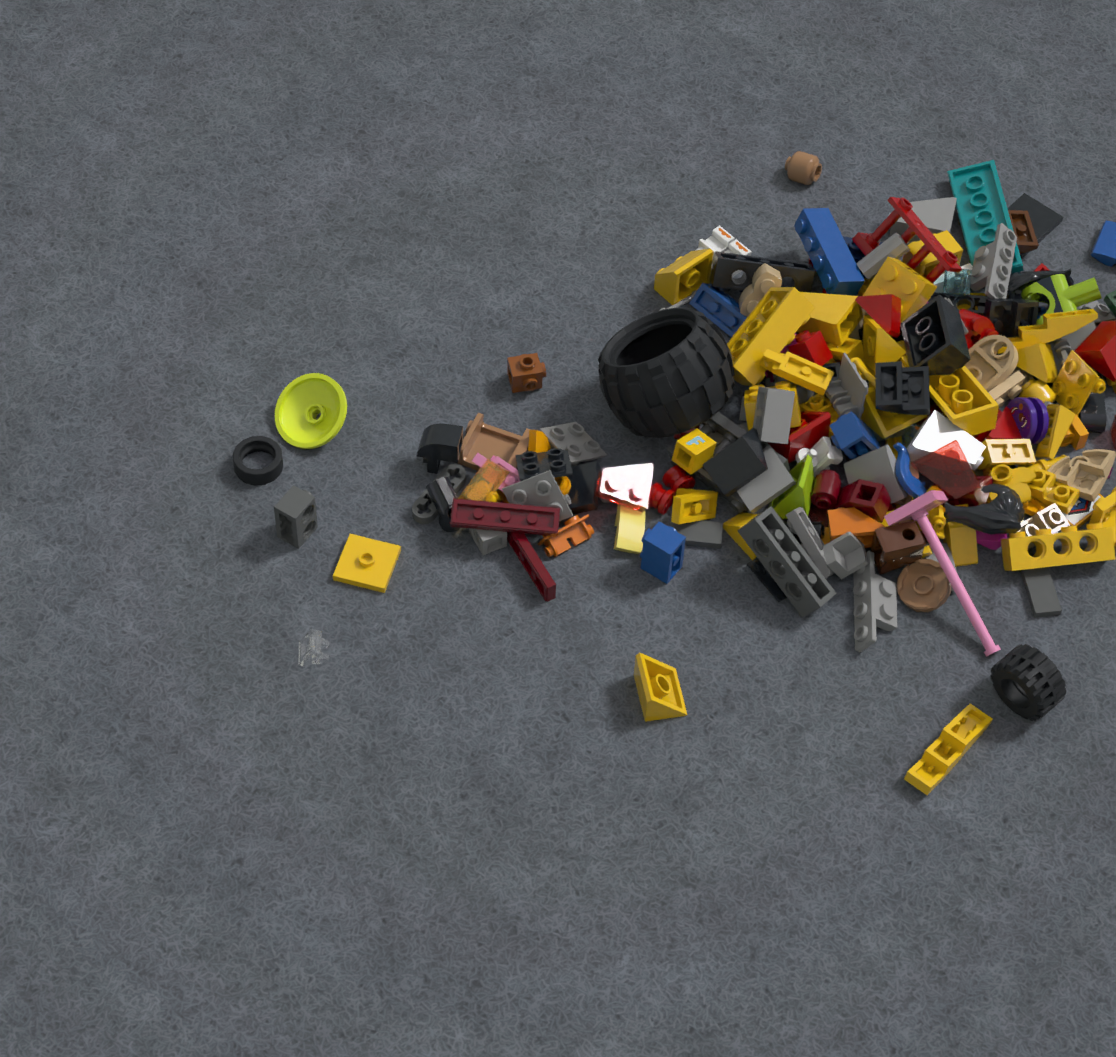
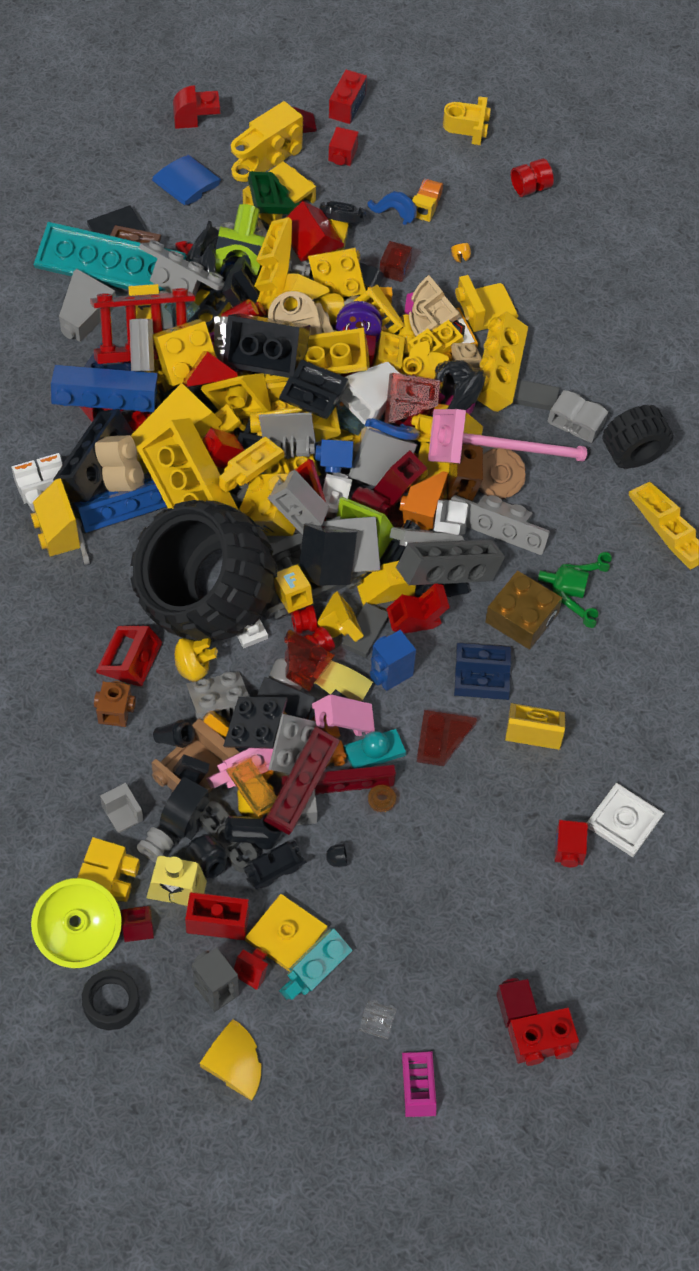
camera: 70 degrees left, 5 degrees up
(237, 559) = (234, 1060): none -> yellow brick
(256, 708) = (419, 1103): none -> dark pink slope
(324, 545) = (251, 967): none -> red tile
(333, 458) = (137, 923): none -> dark red slope
(341, 776) = (543, 1036): none -> red brick
(344, 590) = (315, 964): none -> teal hinge
(356, 503) = (217, 916): none -> red brick
(366, 747) = (515, 1000): none -> dark red brick
(376, 423) = (106, 863): none -> yellow hips
(376, 458) = (175, 879): none -> light yellow torso
(406, 444) = (155, 844): none -> light grey wheel
(410, 482) = (208, 854): none -> black head
(431, 537) = (286, 861): none -> black hinge
(436, 410) = (121, 808): none -> light grey panel
(457, 574) = (336, 855): none -> black hinge
(484, 441) = (191, 768): none -> black tile
(515, 429) = (175, 734): none -> black cone
(526, 599) = (381, 805): none -> clear orange plate
(543, 749) = (571, 843): none -> red brick
(573, 574) = (375, 749): none -> teal tile
(577, 373) = (138, 659): none -> red tile
(588, 533) = (344, 713): none -> bright pink hinge
(592, 792) = (624, 819): none -> white tile
(594, 412) = (193, 658): none -> yellow piece
(612, 621) = (442, 736): none -> clear red wing
(650, 449) = (253, 634): none -> white tile
(708, 631) = (482, 661): none -> dark blue slope
(729, 563) = (418, 614): none -> red brick
(776, 645) = (523, 609): none -> pearl gold brick
(833, 684) = (572, 581): none -> green piece
(1036, 628) = (577, 416): none -> light grey brick

